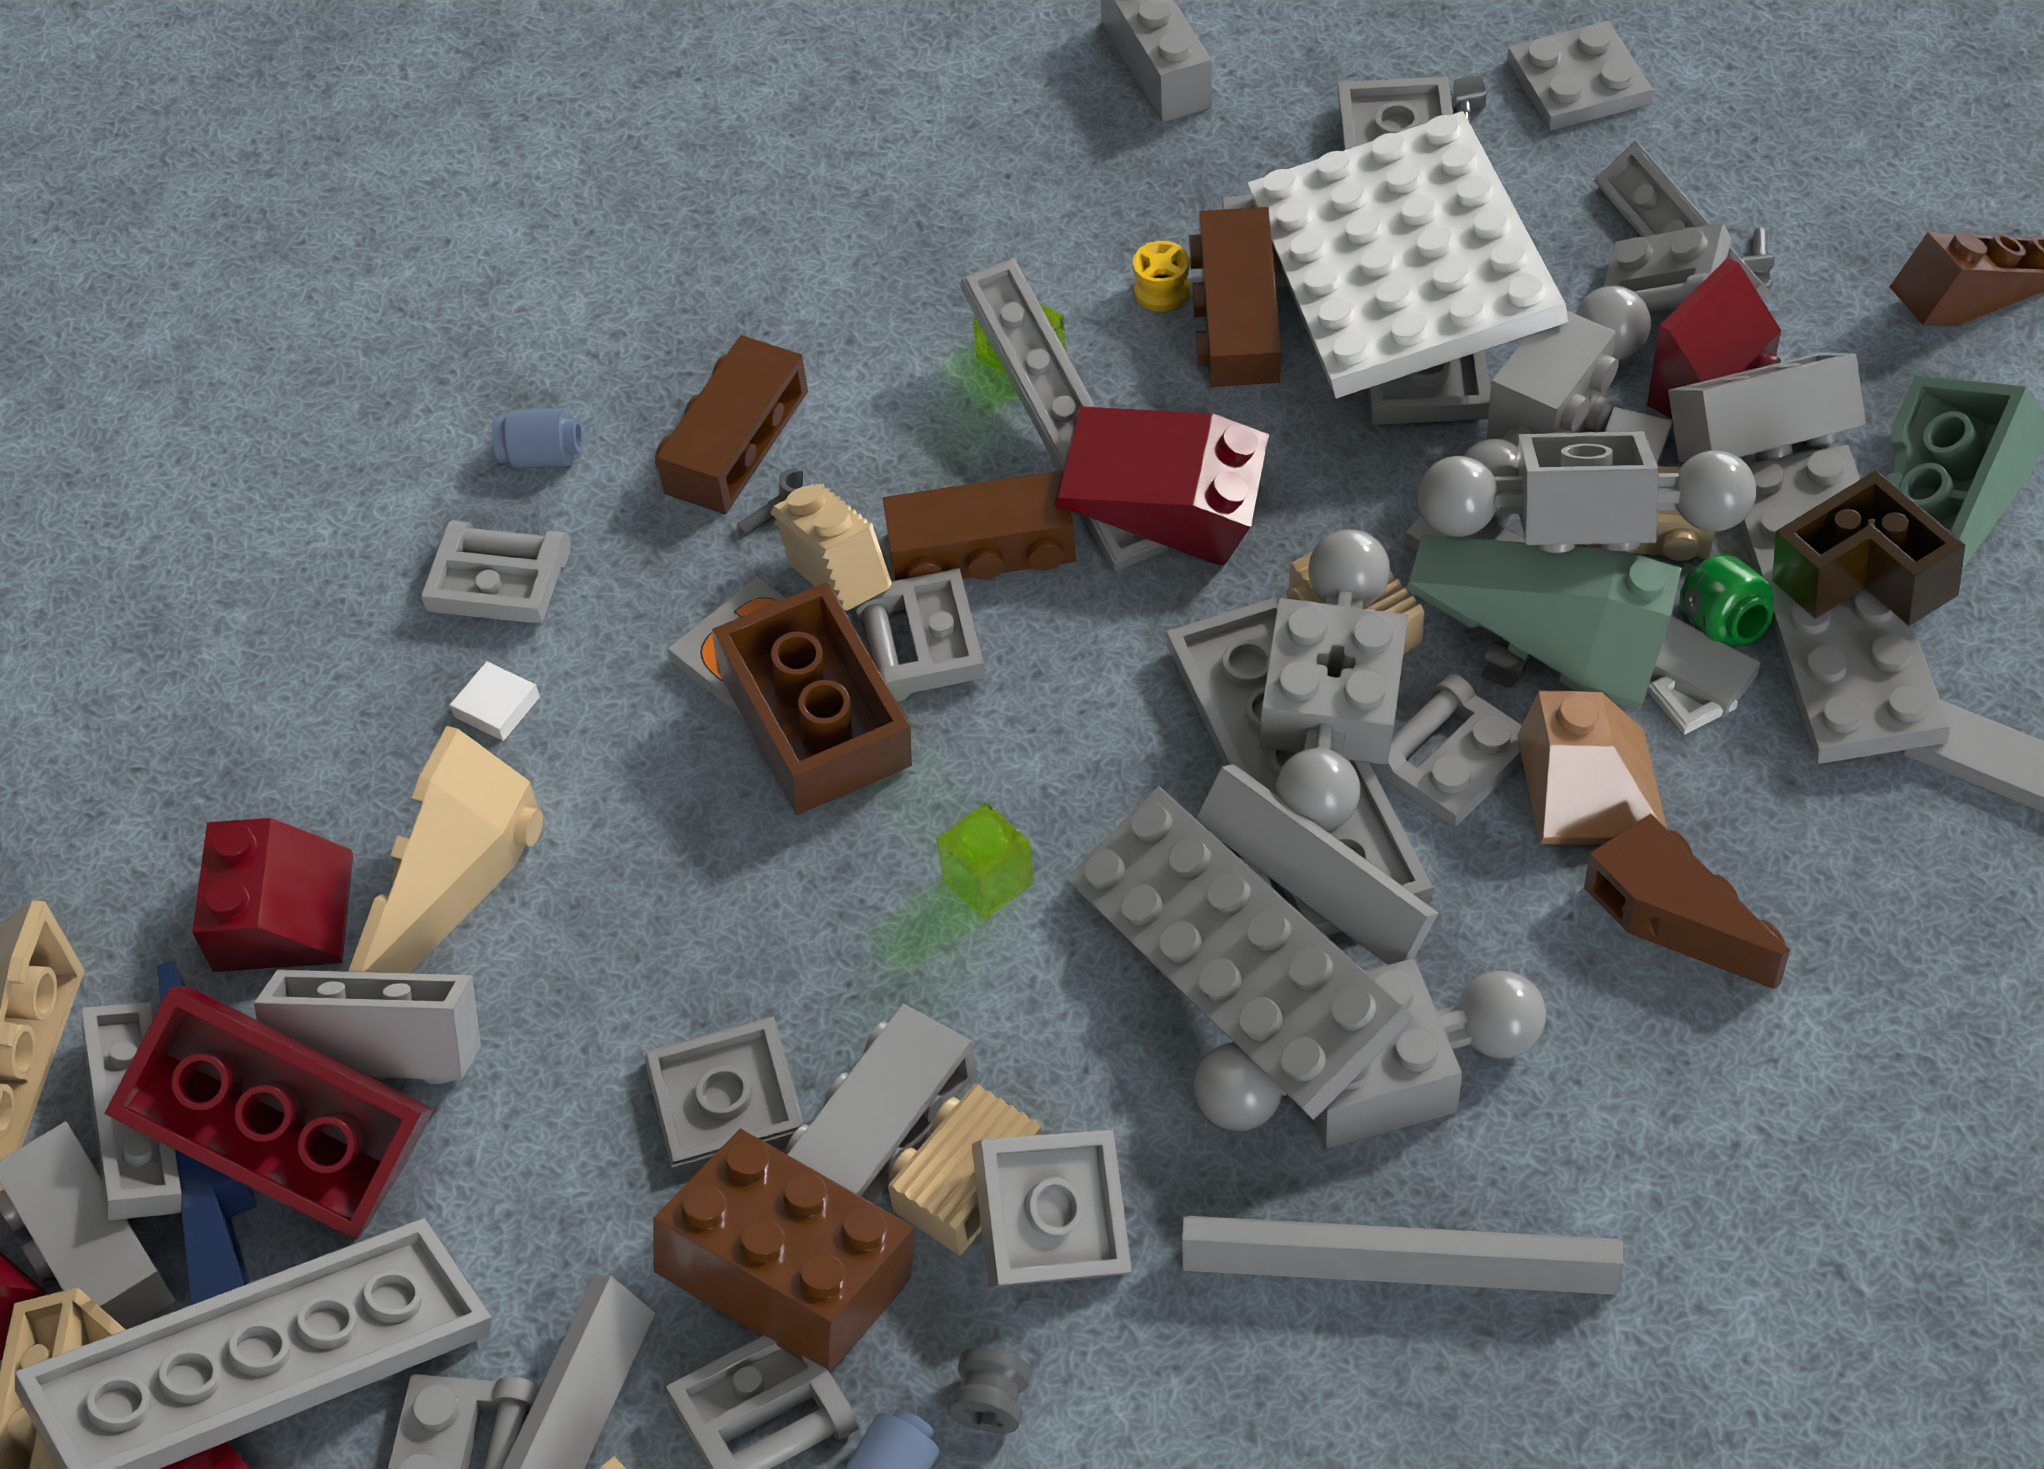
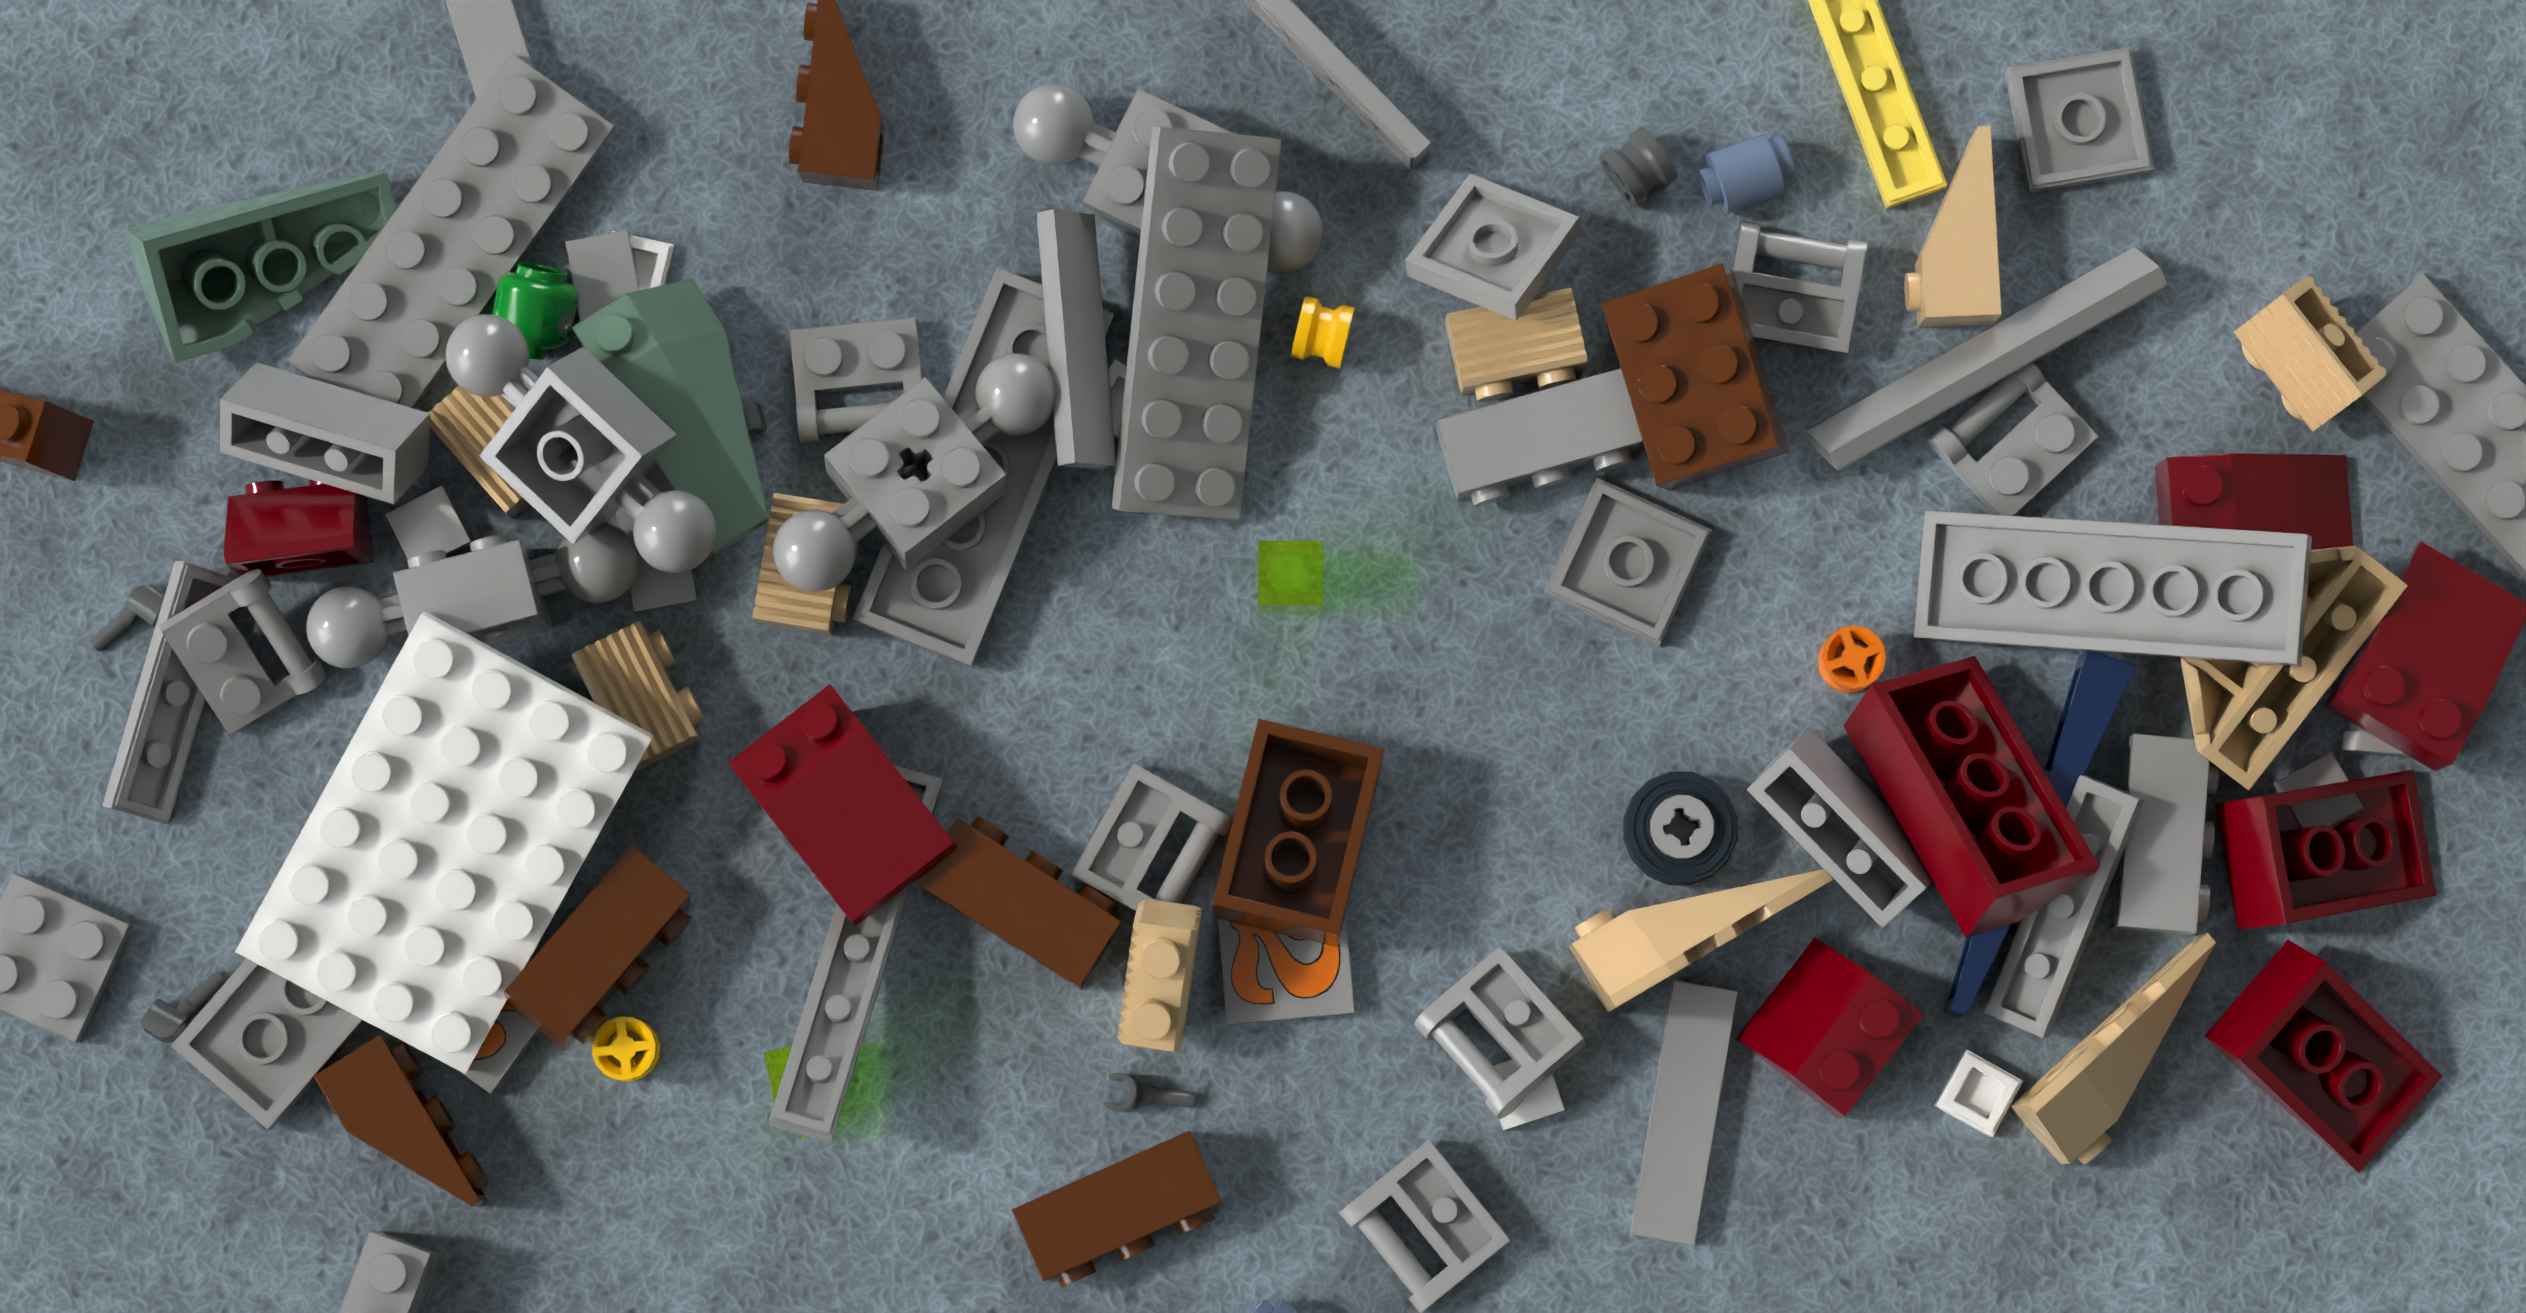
camera: 145 degrees left, 30 degrees up
(116, 954) = (1978, 1093): none -> white tile
(349, 768) = (1683, 1113): none -> light grey tile
(458, 1146) = (1862, 654): none -> orange wheel
(512, 964) = (1664, 851): none -> black wheel
(536, 722) = (1518, 1020): none -> light grey plate
(1132, 1049) = (1322, 332): none -> yellow wheel
(1251, 138) = (385, 1108): none -> reddish brown slope
(1376, 447) = (632, 680): none -> tan brick
(1585, 768) = (793, 254): medium nougat slope -> none
(1870, 541) = (409, 214): dark brown brick -> none

